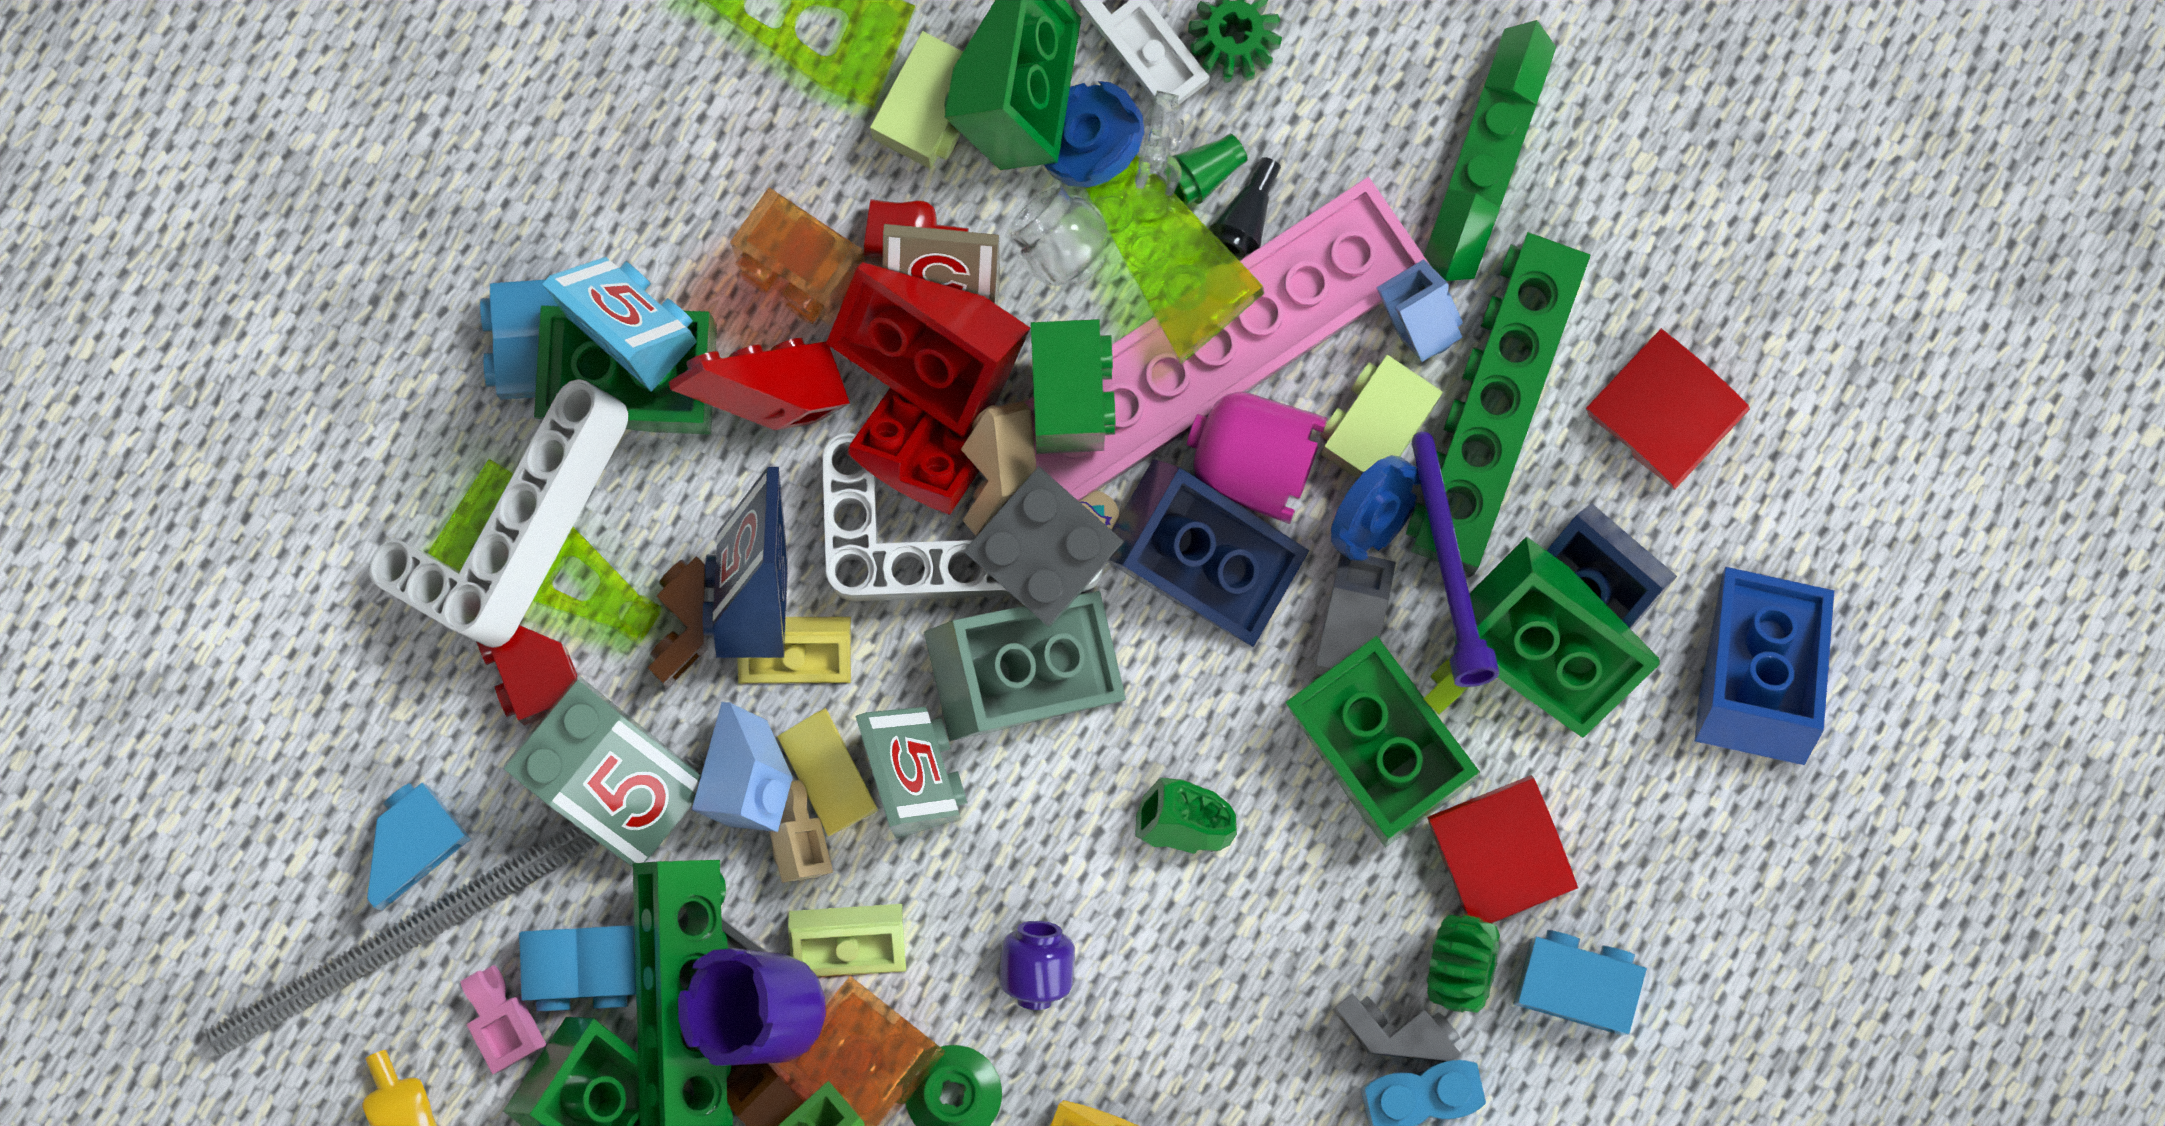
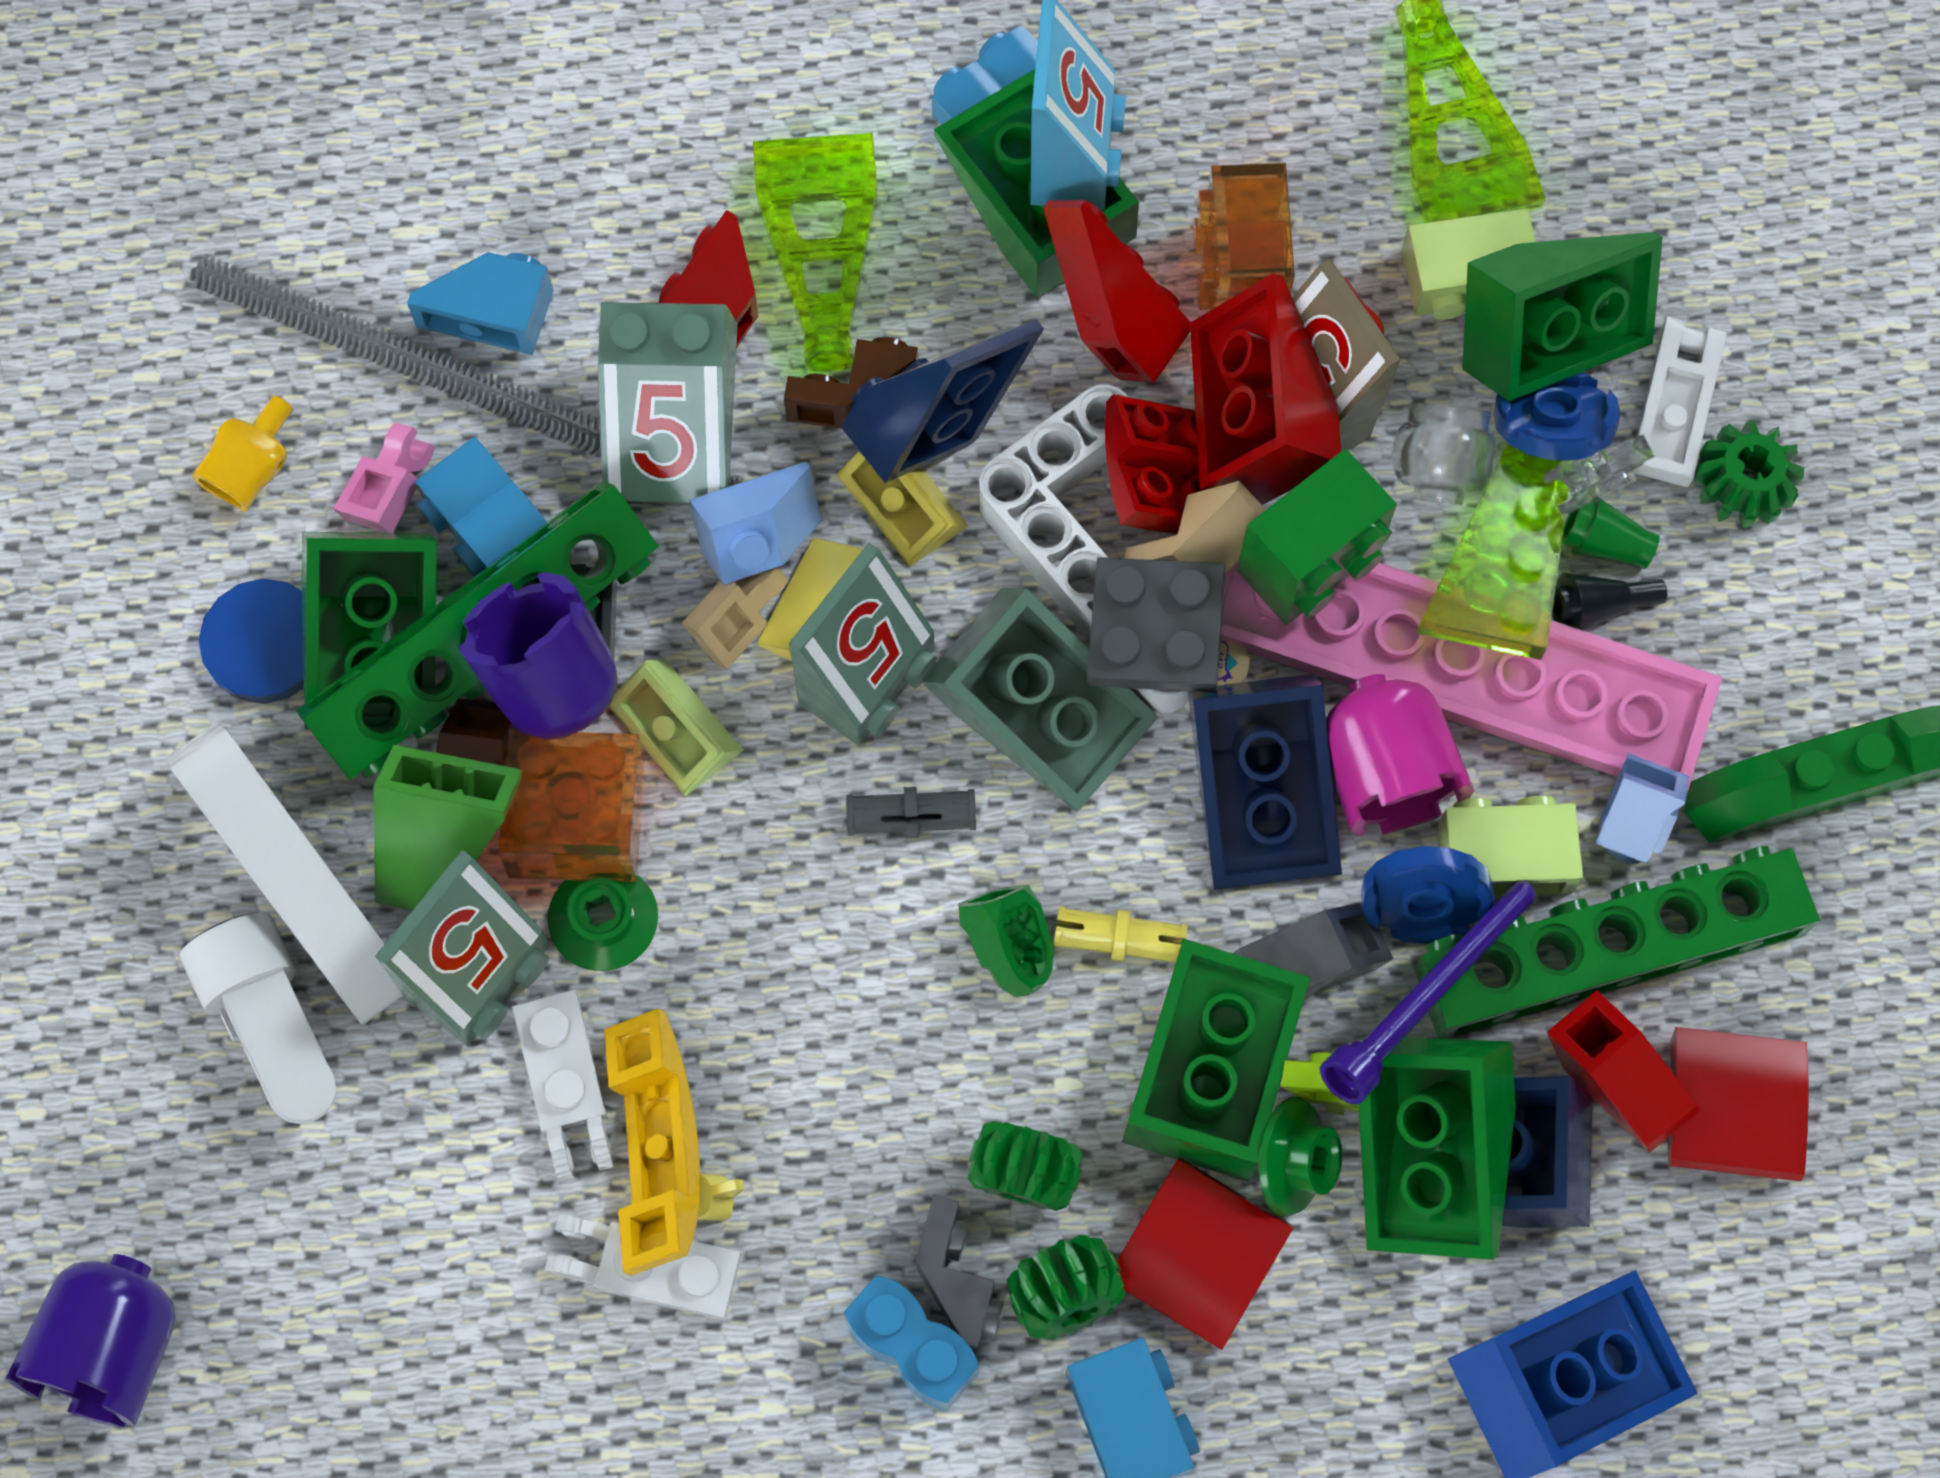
camera: 55 degrees right, 10 degrees down
(523, 530) = (833, 178): white beam -> none
(1037, 964) = (773, 899): dark purple head -> none
(1041, 818) = (911, 812): none -> dark grey pin
(1239, 738) = (1119, 935): none -> light yellow pin
(1359, 929) = (1025, 1165): none -> green gear
(1490, 737) = (1297, 1157): none -> green piece
(1594, 473) = (1621, 1071): none -> red slope

